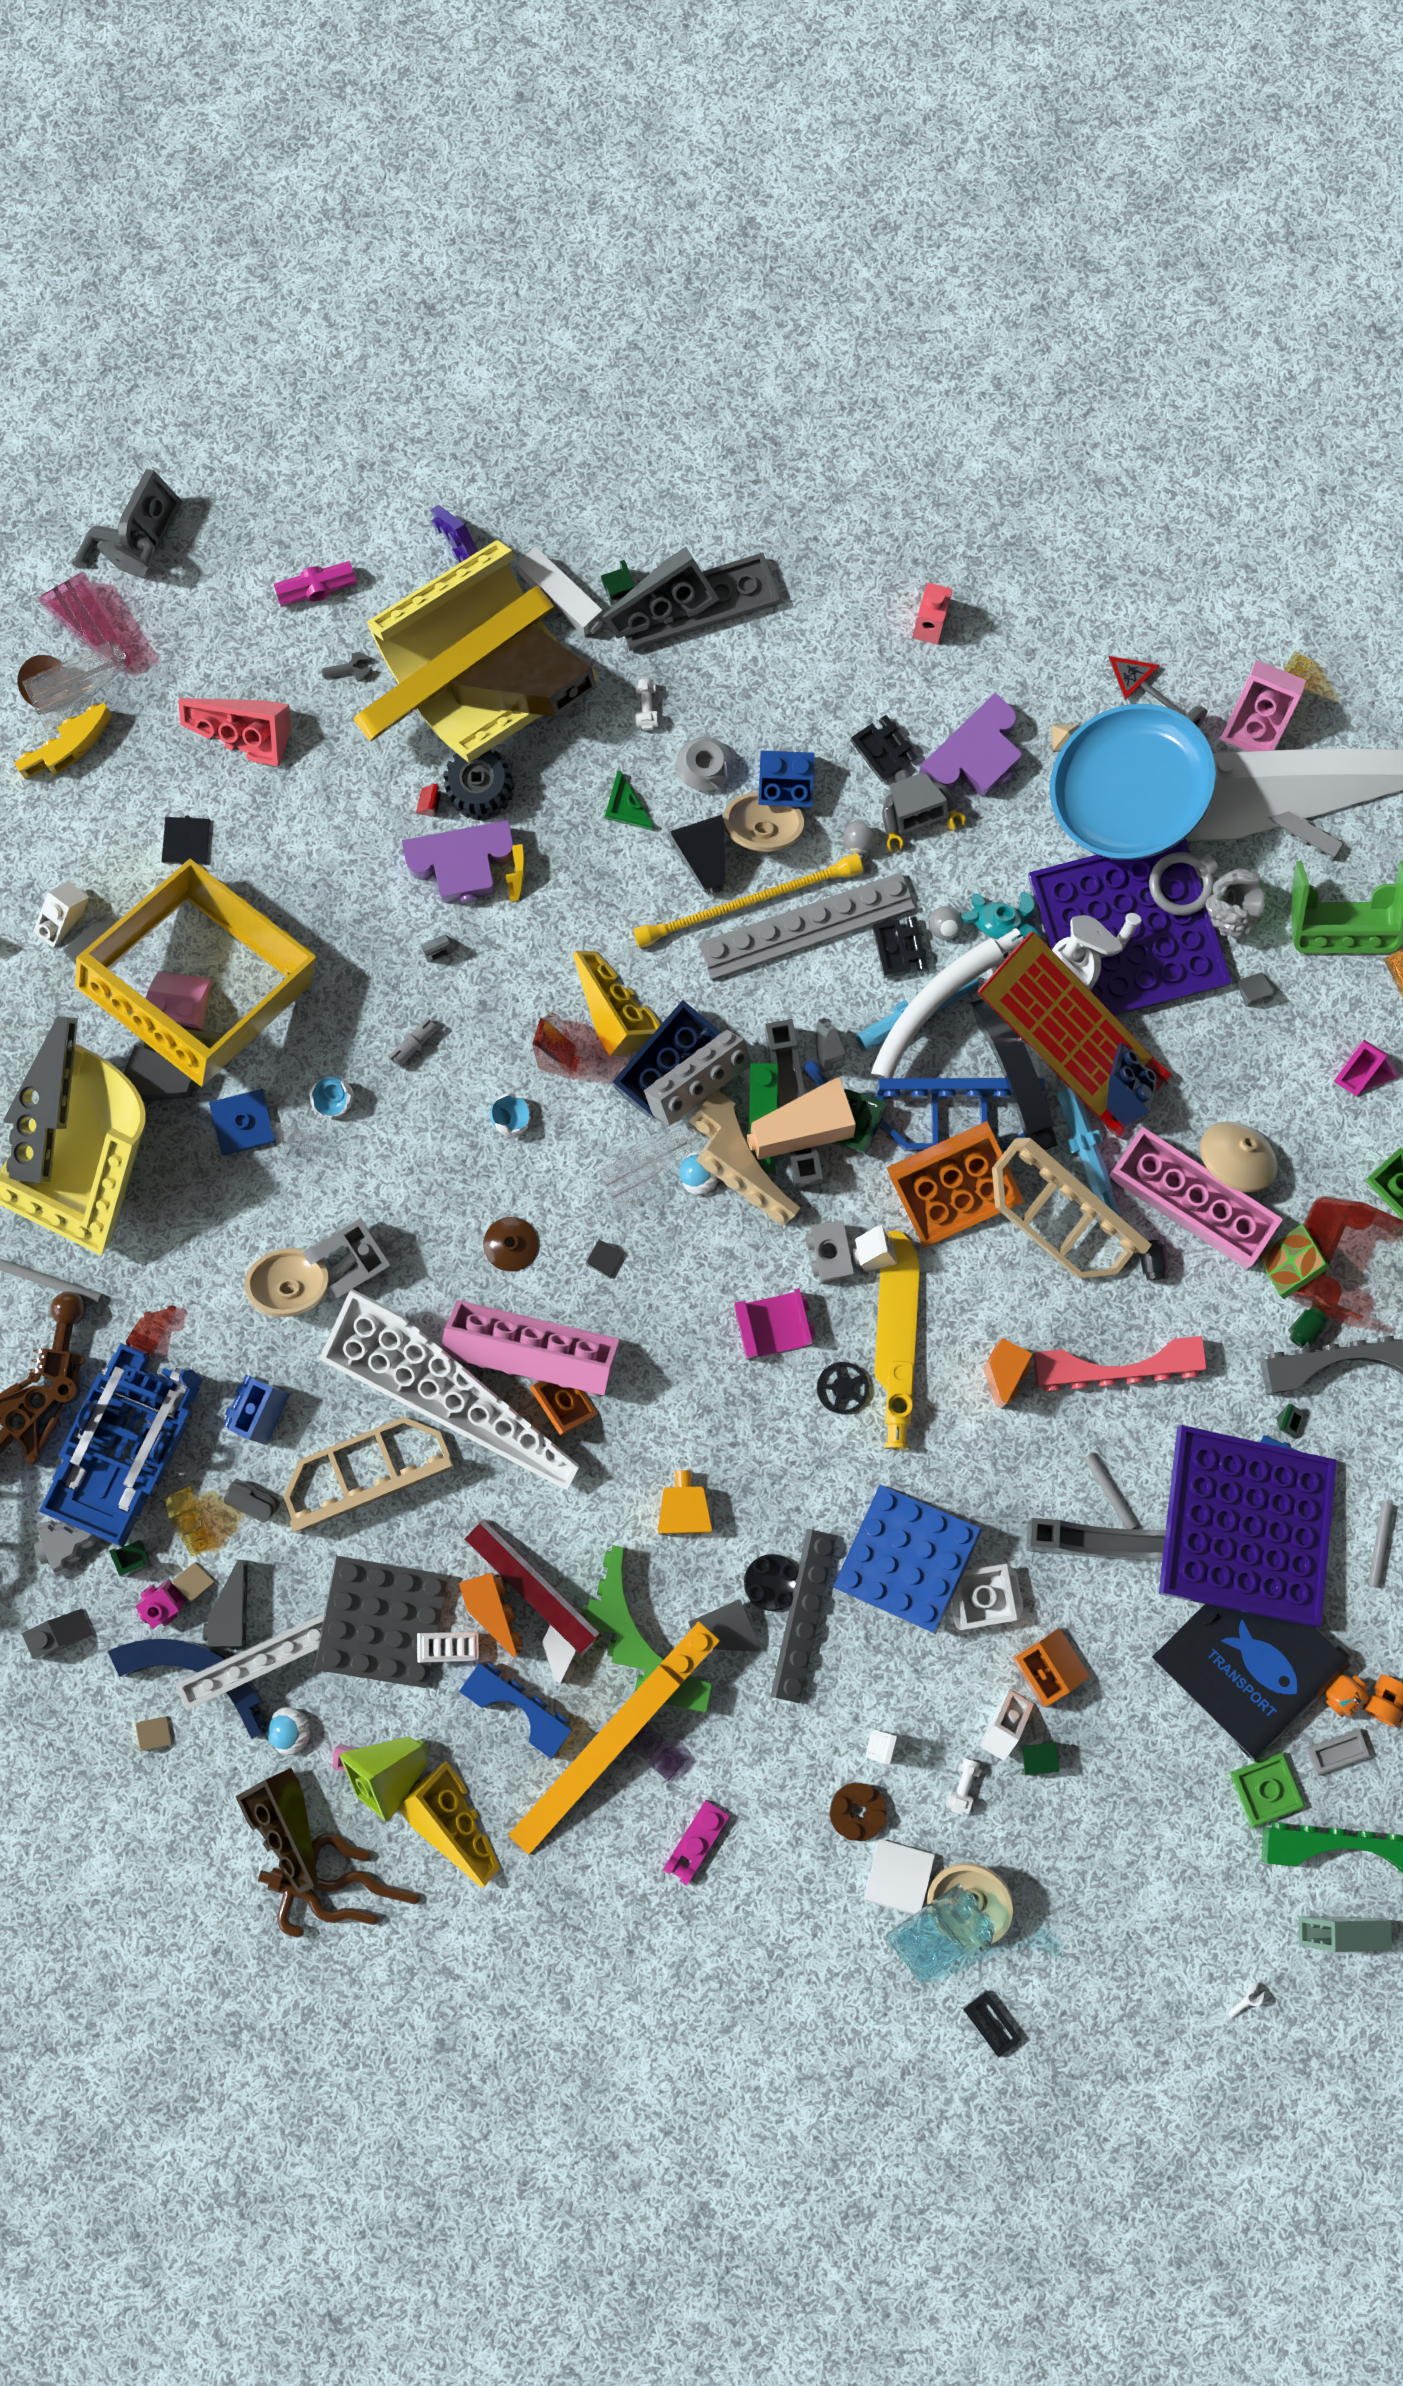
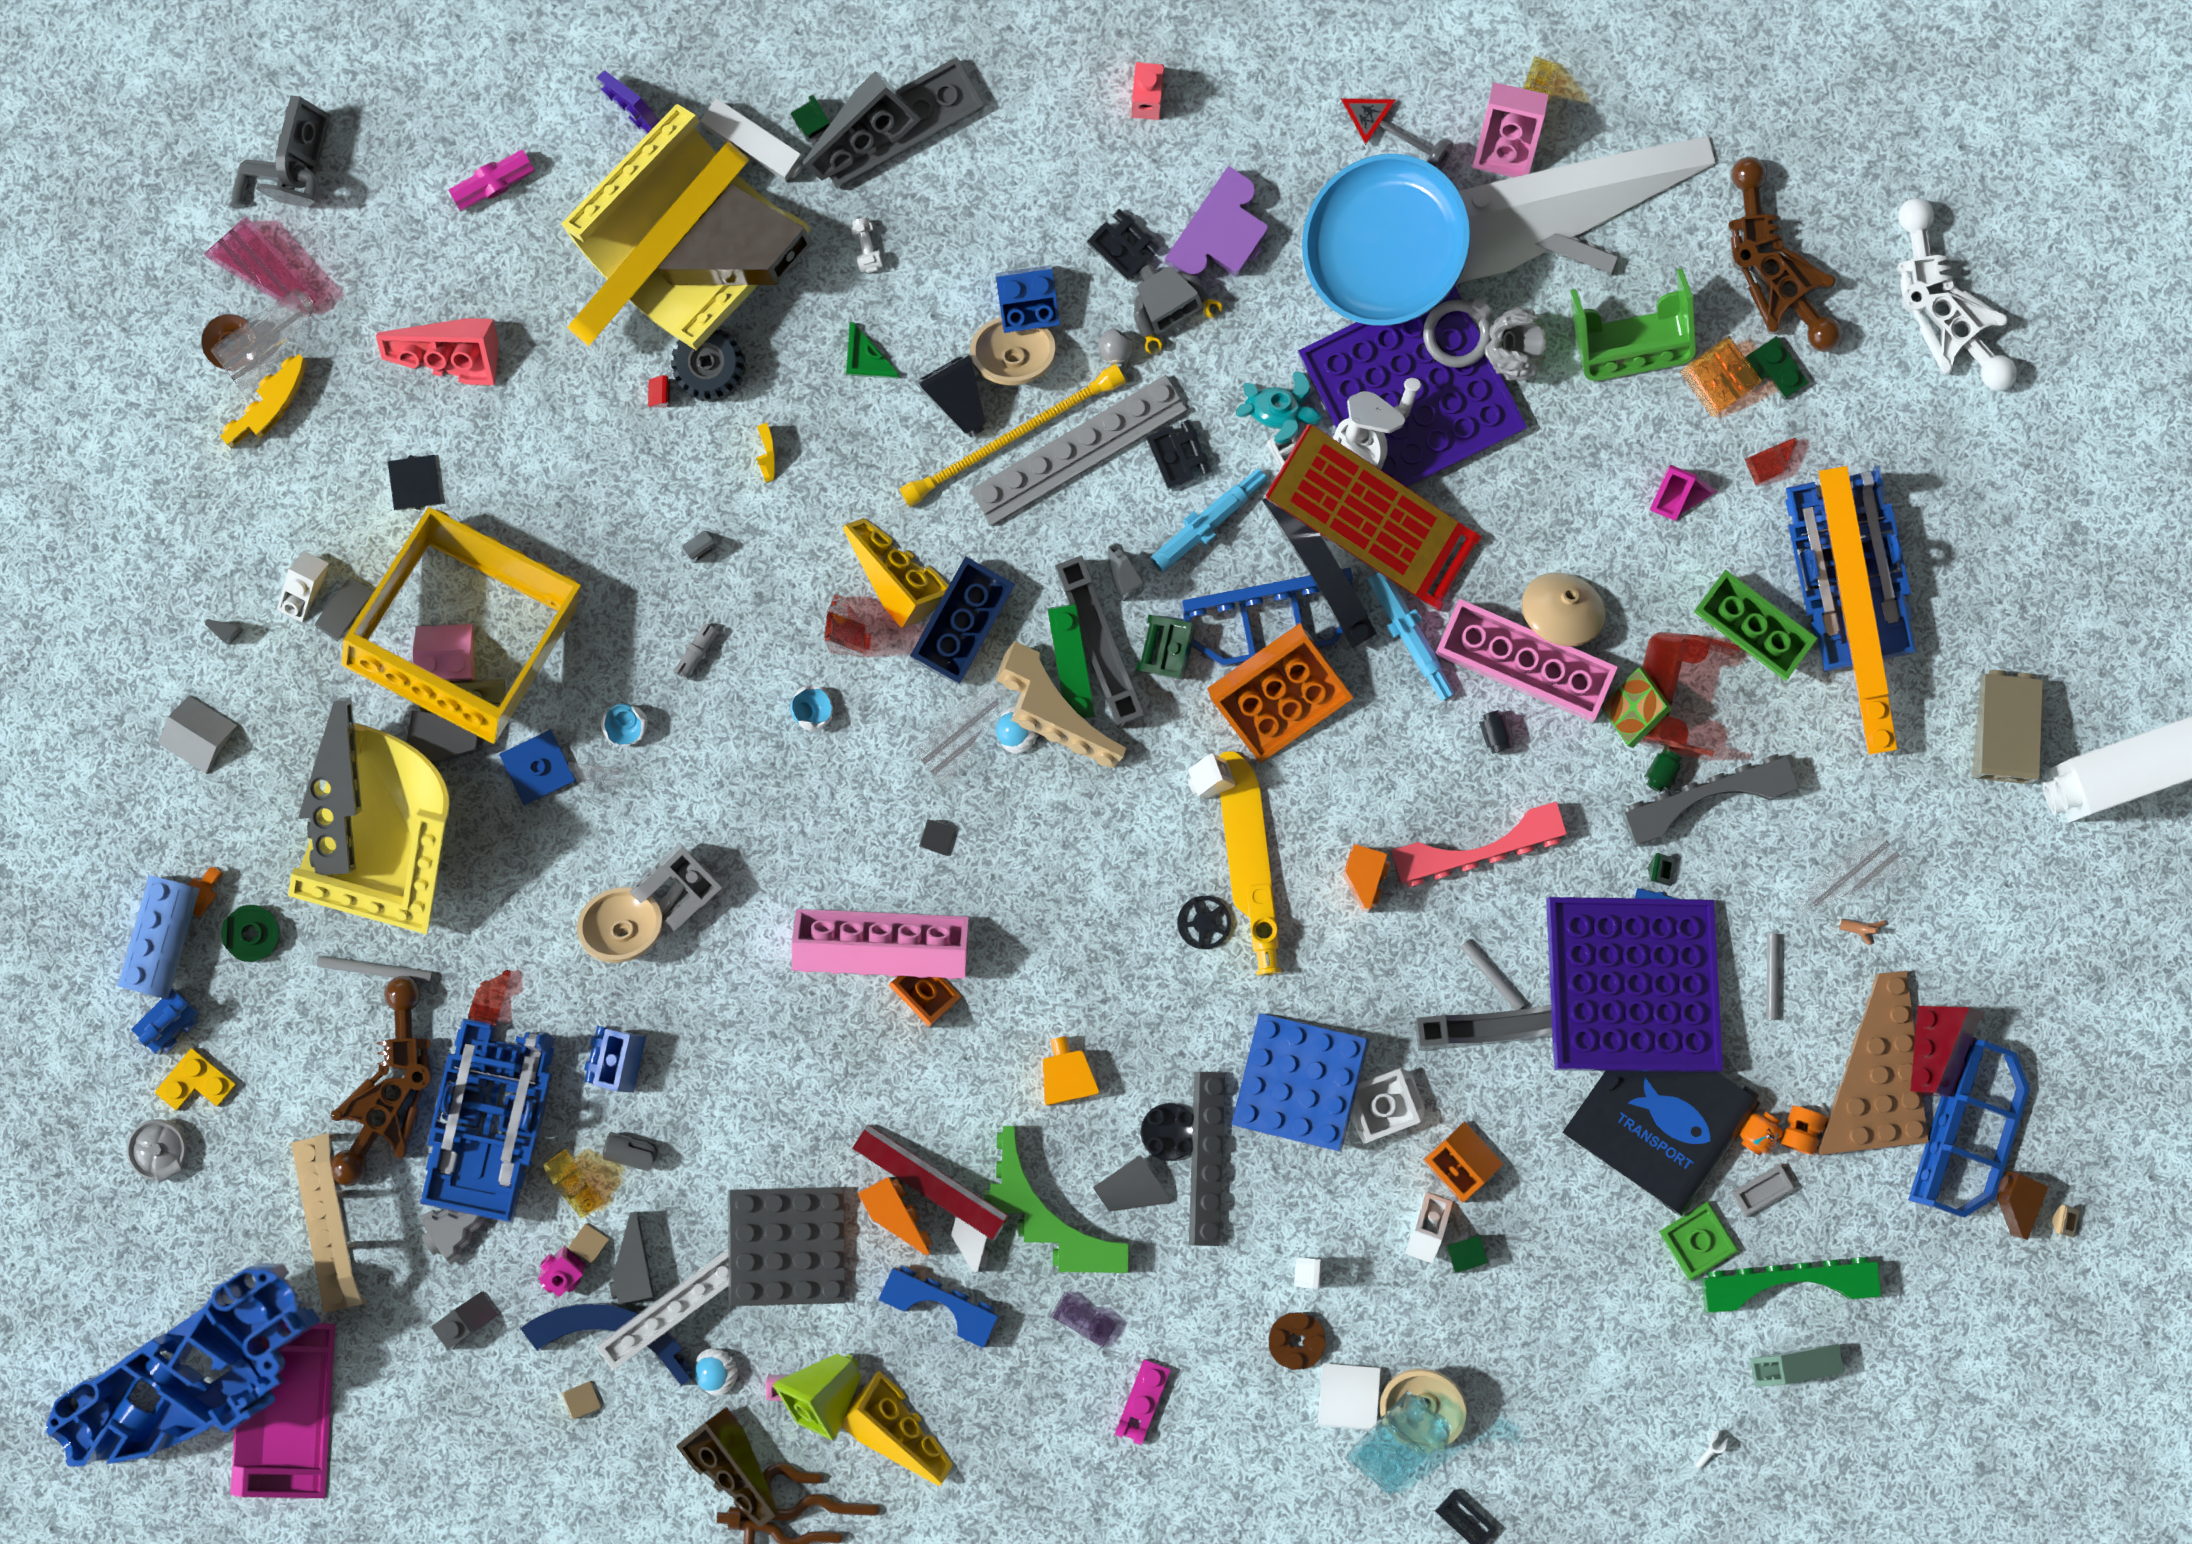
camera: 10 degrees left, 5 degrees up
(130, 1559) = (521, 1232): dark green panel -> none
(350, 668) = (546, 264): dark grey bar -> none
(383, 1486) = (738, 1126): tan plate -> none
(409, 1367) = (761, 987): white wedge -> none
(460, 859) = (706, 449): medium lavender brick -> none
(465, 1647) = (875, 1254): white slope -> none
(513, 1257) = (848, 851): reddish brown dish -> none
(614, 1737) = (1041, 1315): light orange slope -> none
(698, 1077) = (997, 634): light grey brick -> none
(705, 764) = (939, 297): light grey piece -> none
(774, 1324) = (1122, 871): dark pink panel -> none
(804, 1123) = (1115, 660): light nougat slope -> none
(812, 1070) = (1116, 606): blue tile -> none
(832, 1235) = (1165, 769): light grey brick -> none
(935, 993) = (1223, 502): white animal -> none
(945, 922) = (1221, 420): light grey piece -> none
(960, 1801) = (1396, 1311): white bar -> none
(1060, 735) = (1307, 193): tan slope -> none
(1071, 1189) = (1397, 679): tan plate -> none
(1130, 1087) = (1439, 559): dark blue slope -> none
(1254, 989) = (1552, 428): dark grey slope -> none

